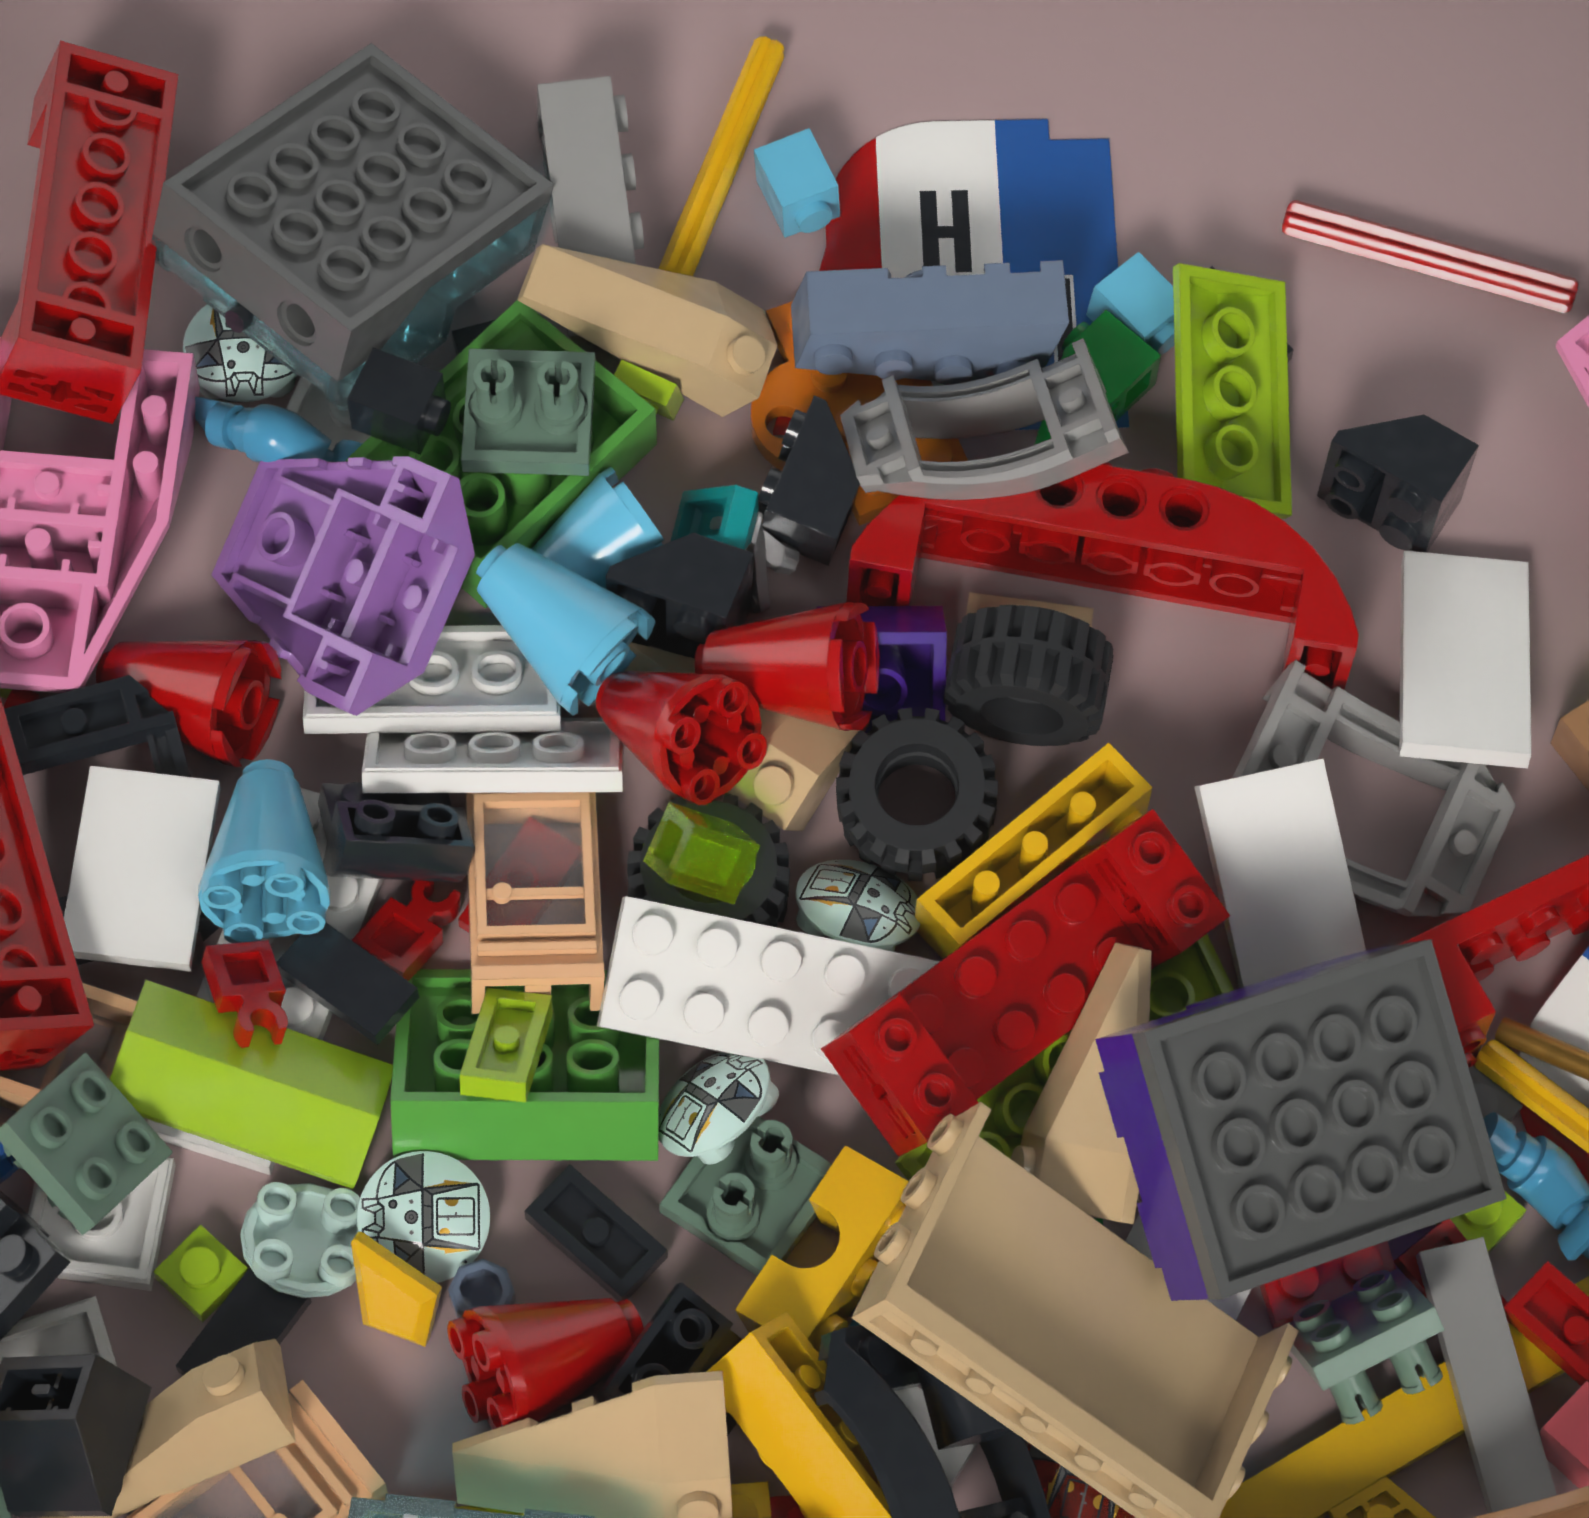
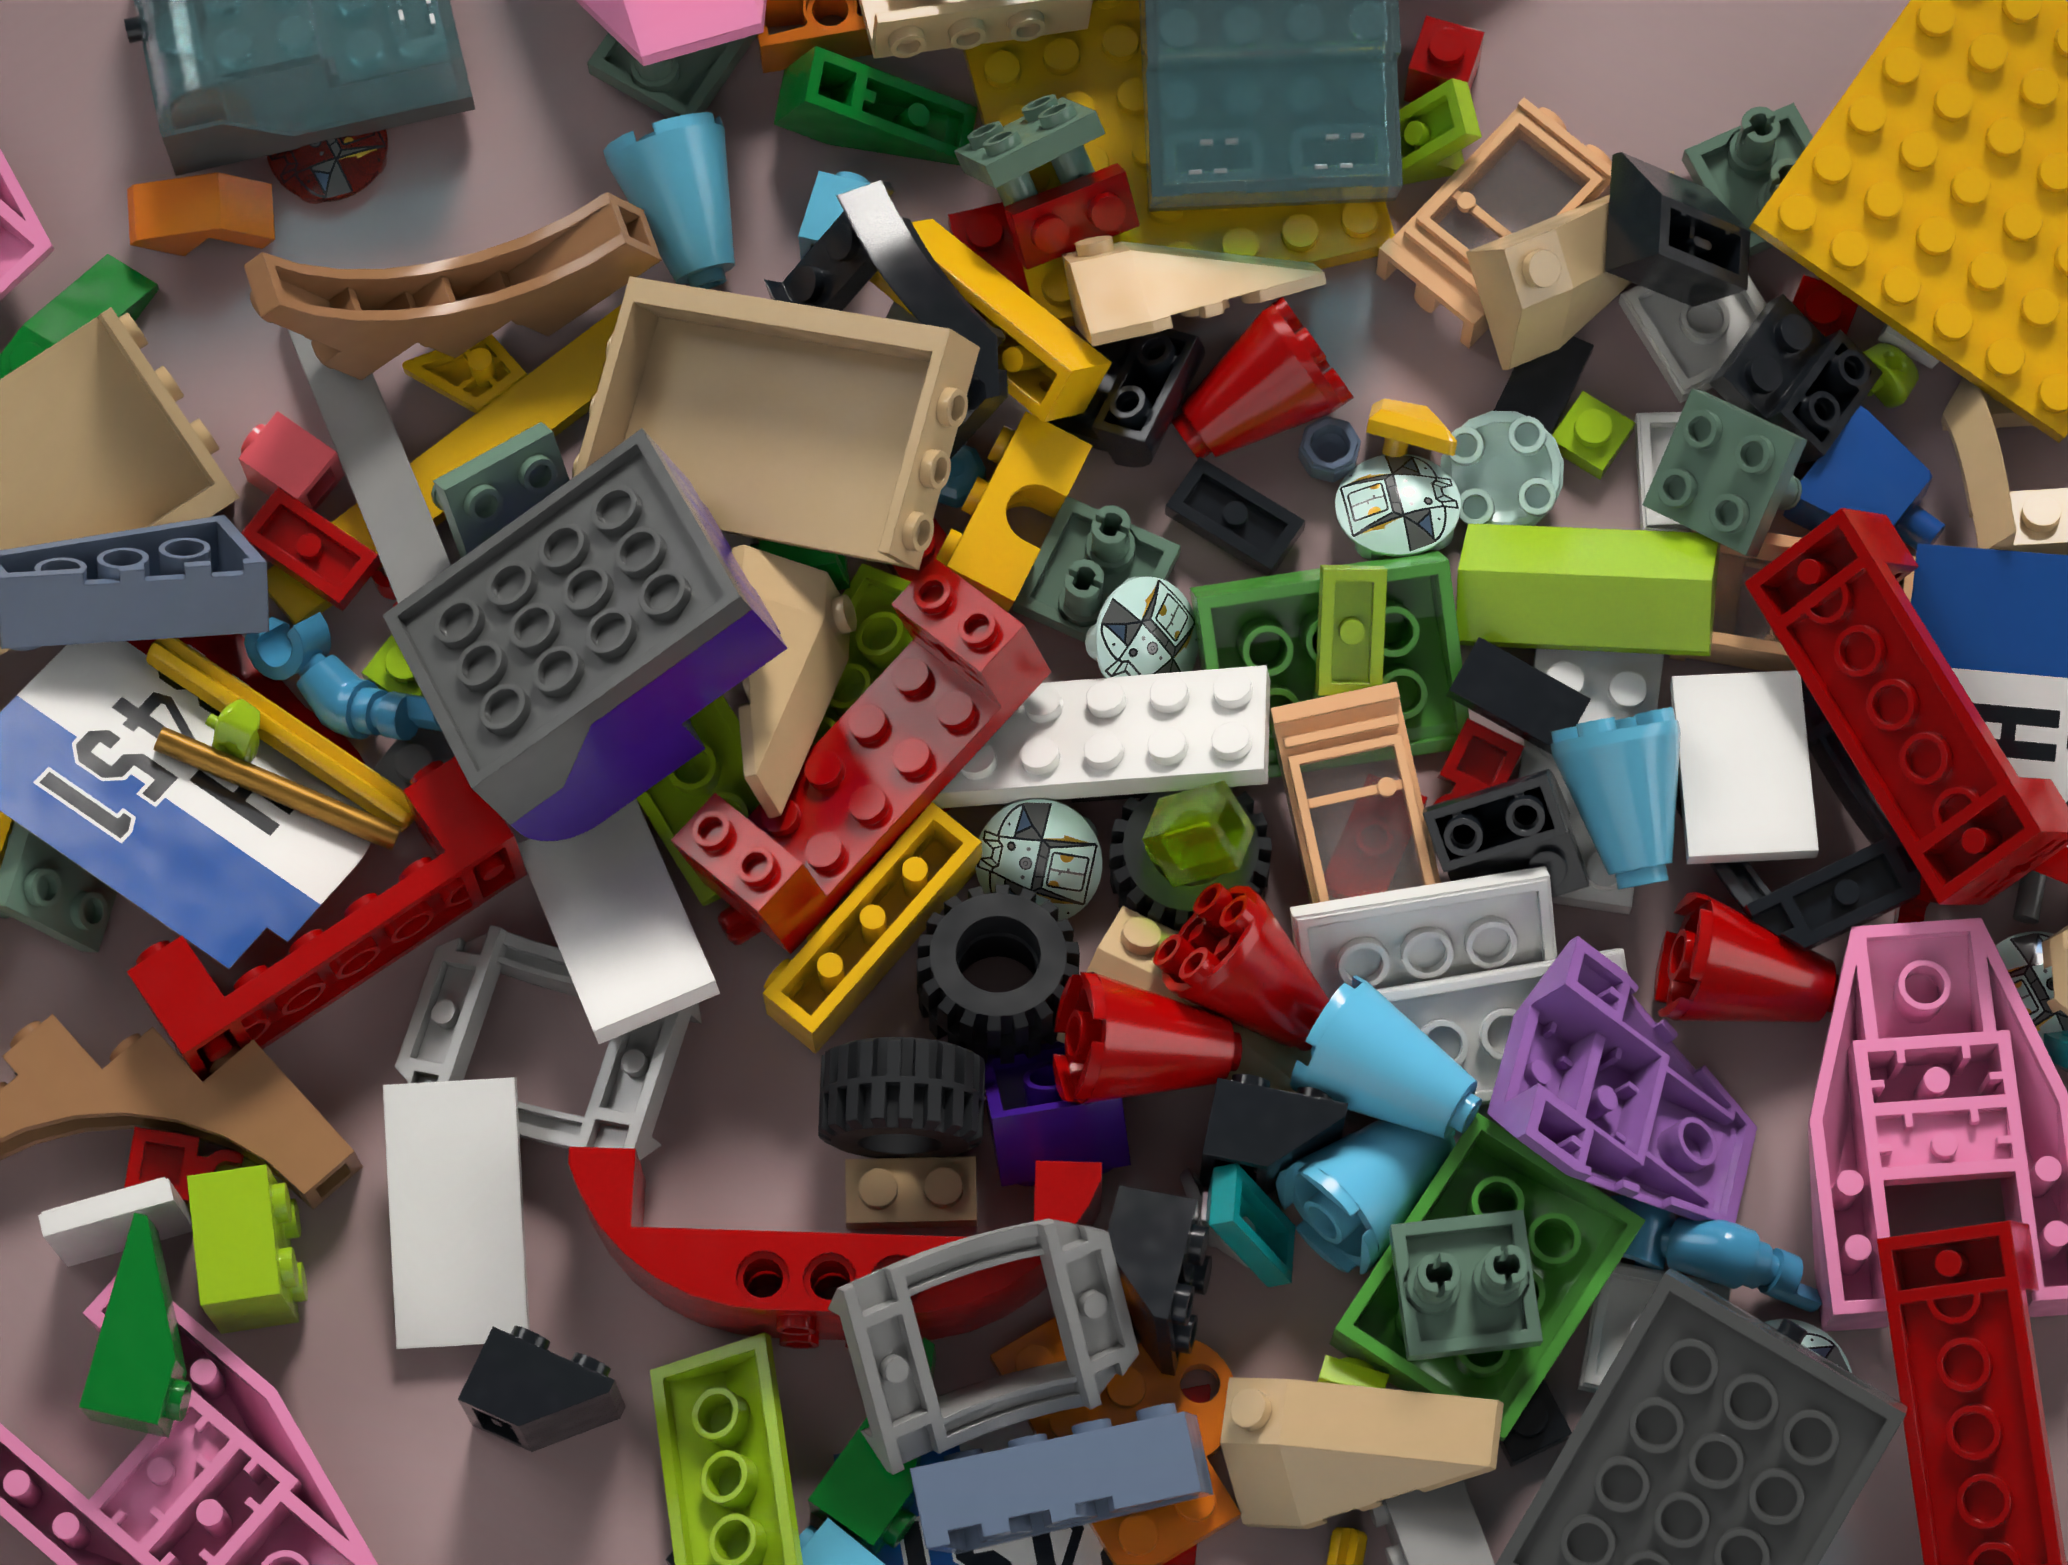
camera: 175 degrees right, 5 degrees up
(249, 982) = (1615, 672): red plate -> none
(398, 401) = (1602, 1271): black brick -> none

